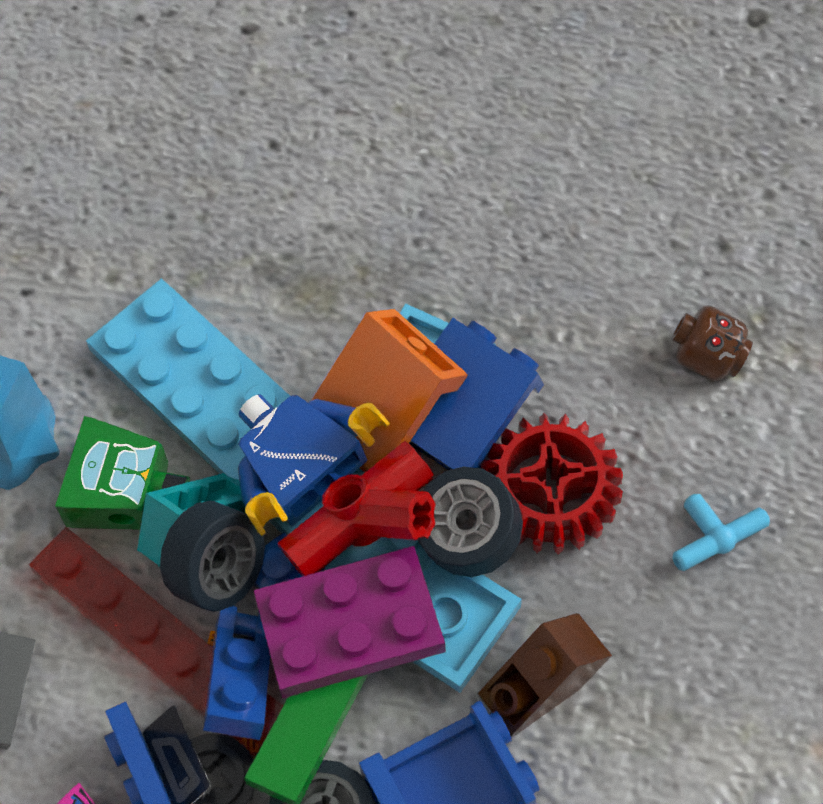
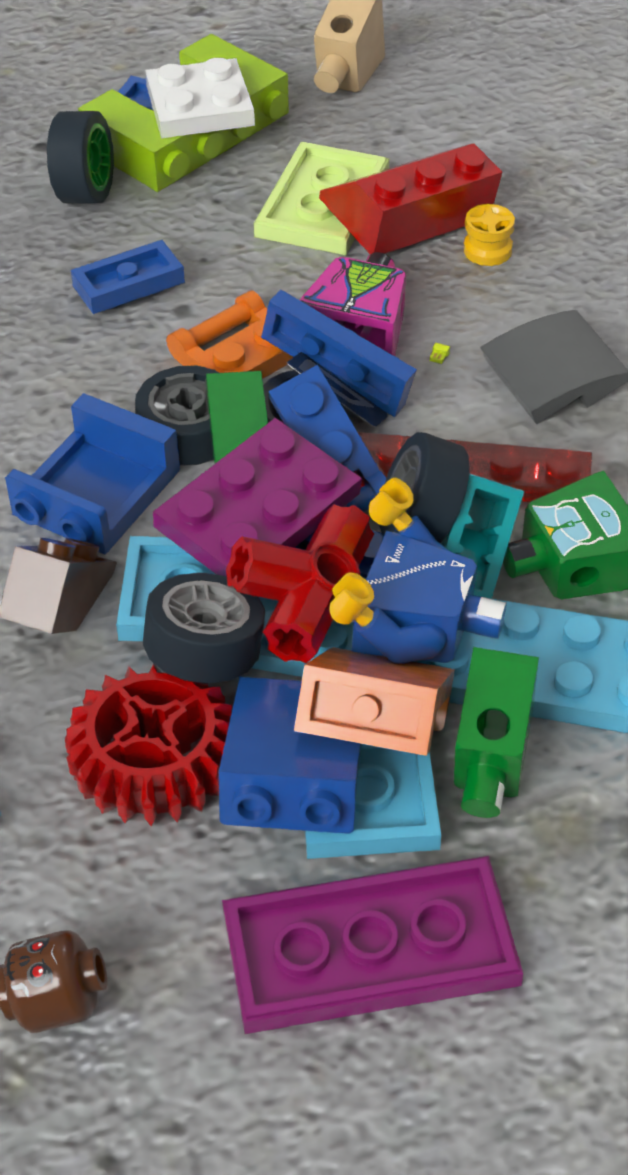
camera: 145 degrees right, 15 degrees down
(41, 778) = (439, 353): none -> neon yellow piece
(310, 340) = (494, 729): none -> green torso
(493, 281) = (369, 944): none -> magenta tile

